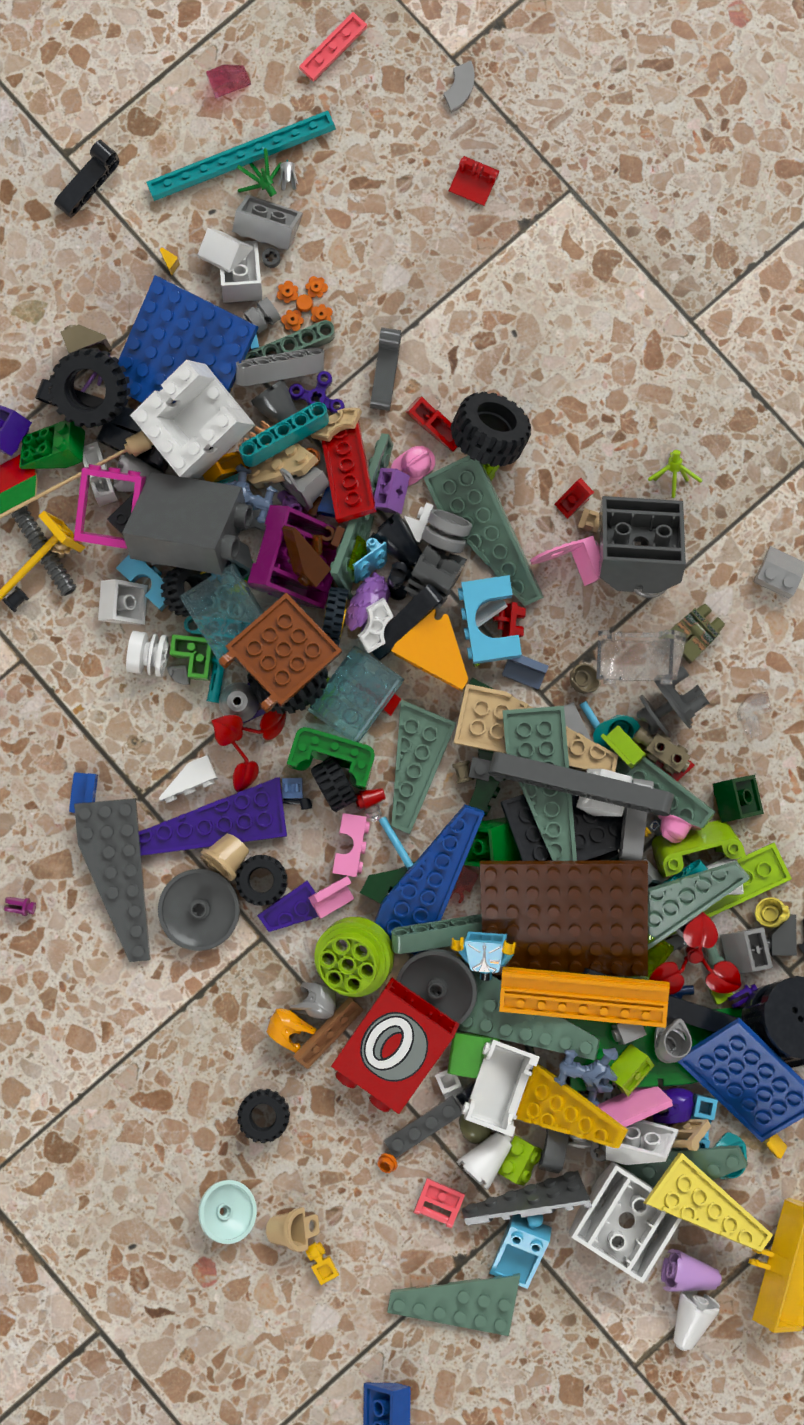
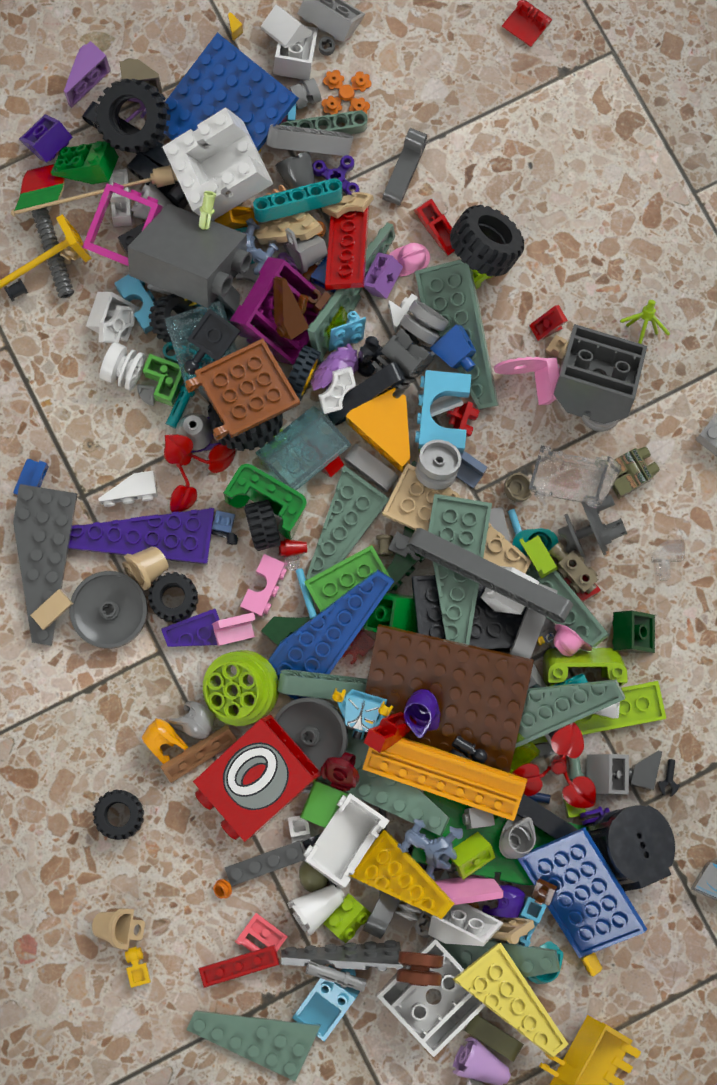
camera: 10 degrees right, 5 degrees down
(28, 348) = (87, 71): none -> medium lavender slope
(126, 619) = (111, 330): none -> white tile
(141, 924) = (51, 609): none -> tan tile
(194, 472) = (207, 209): none -> yellowish green axle
(233, 604) = (212, 337): none -> black plate
(238, 1214) = (72, 898): light aqua dish -> none
(398, 540) = (378, 320): black cone -> none
(423, 1236) = (239, 966): none -> red tile
(429, 695) = (371, 467): none -> light grey beam
(431, 817) = (342, 577): none -> bright green plate
(478, 1018) = (341, 771): none -> dark red tile
(486, 550) = (455, 348): none -> blue torso
(498, 679) = (438, 464): none -> light grey wheel
(518, 969) = (388, 732): none -> red slope
(524, 1225) = (345, 979): none -> light grey pin
(548, 938) = (423, 709): none -> dark purple helmet
(608, 1201) = (419, 971): none -> copper wheel
(613, 968) = (468, 749): none -> black pin
(698, 1243) = (494, 1037): none -> olive beam
(711, 1088) = (543, 892): none -> reddish brown tile
(771, 912) = (640, 744): light yellow piece -> none

